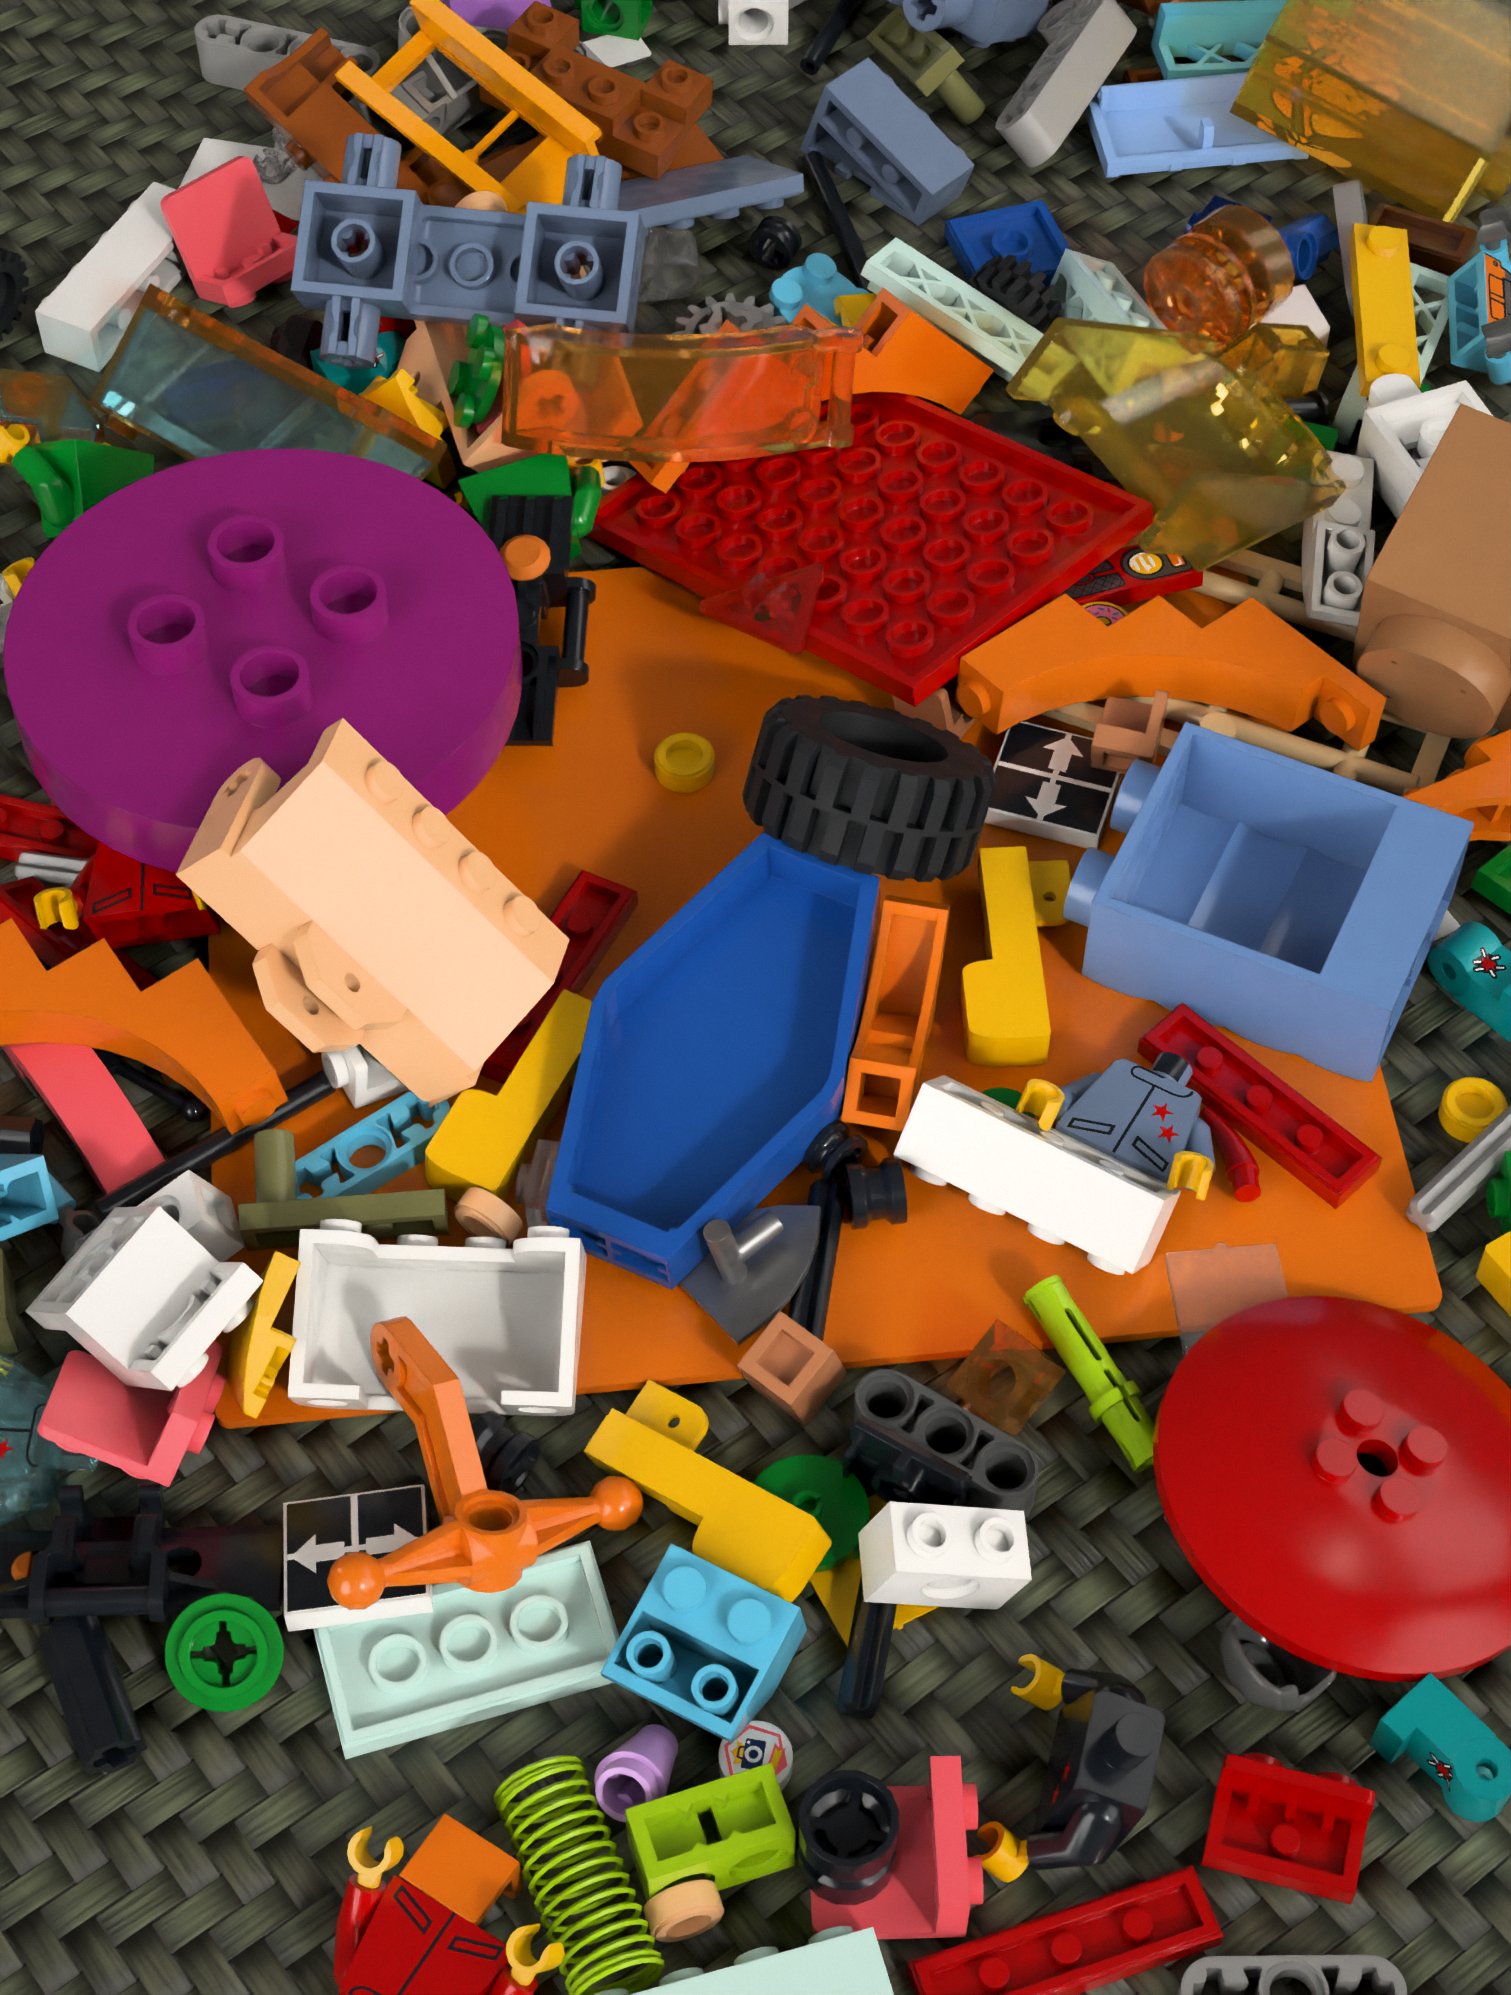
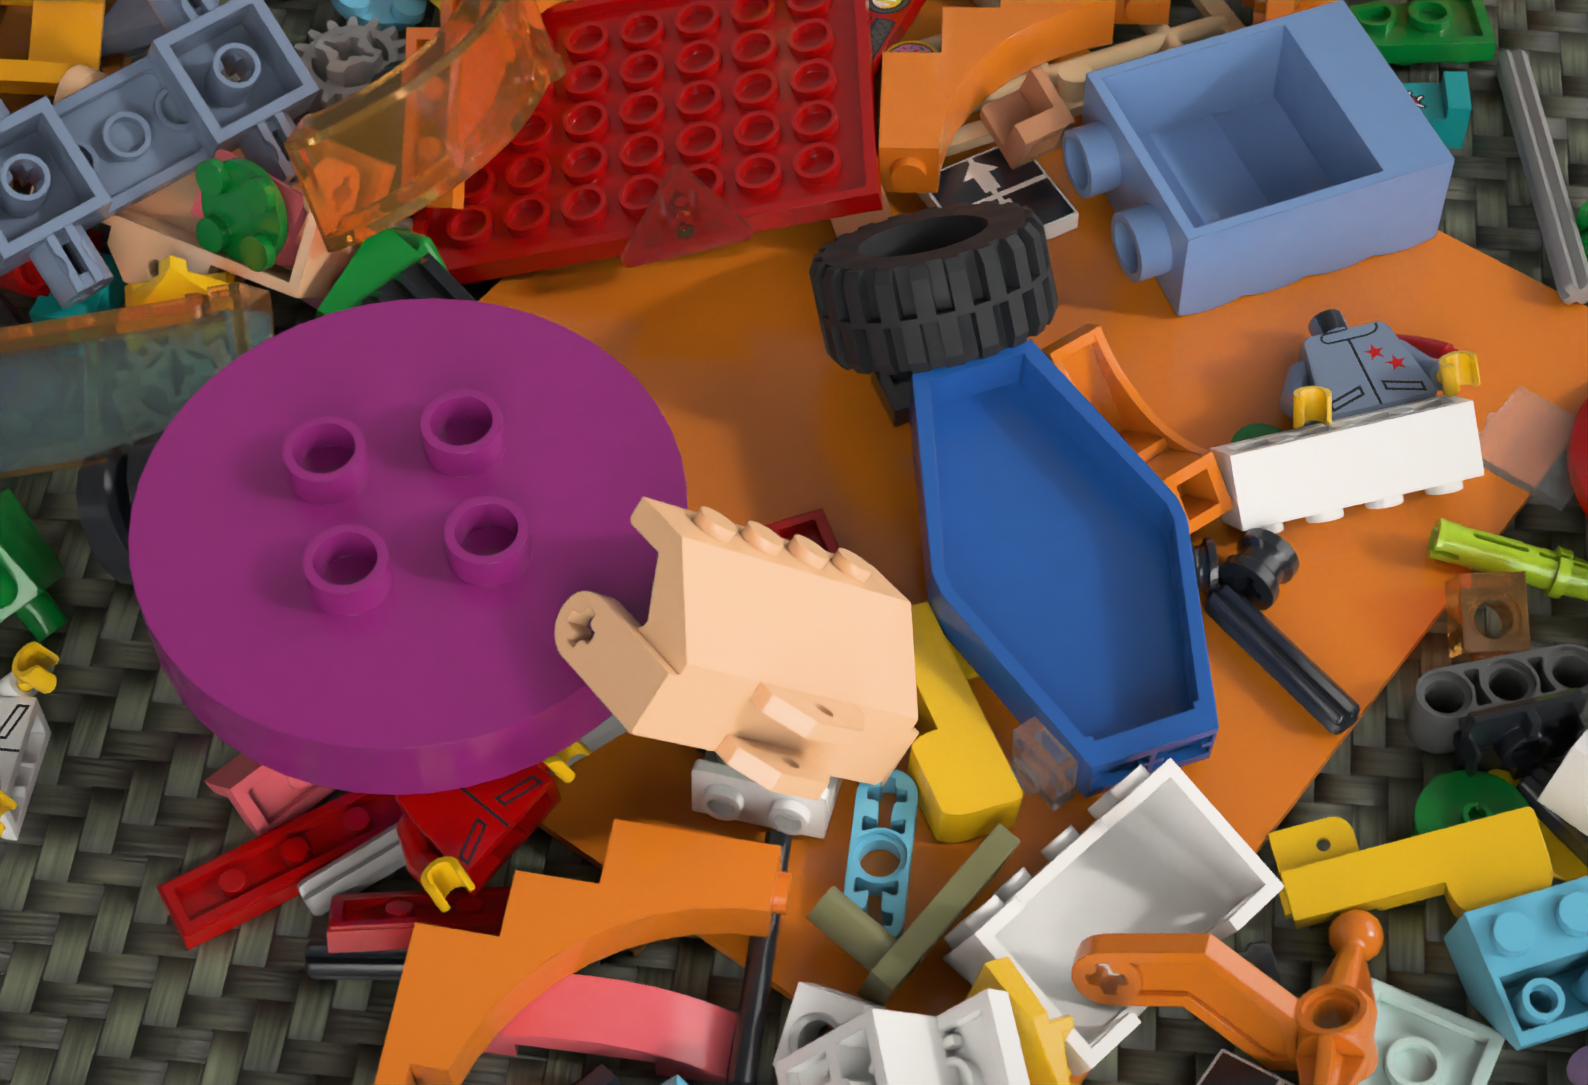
camera: 45 degrees left, 0 degrees up
(191, 1109) = (687, 955): black hinge -> none
(487, 1216) = (1035, 820): light nougat tile -> none
(684, 762) = (726, 392): yellow tile -> none
(754, 1266) = (1254, 690): flat silver shield -> none
(792, 1368) = (1360, 734): nougat panel -> none
(1006, 993) = (1165, 366): yellow piece -> none
(1264, 1107) = (1407, 304): red tile -> none
(1470, 1107) = (1501, 207): yellow tile -> none

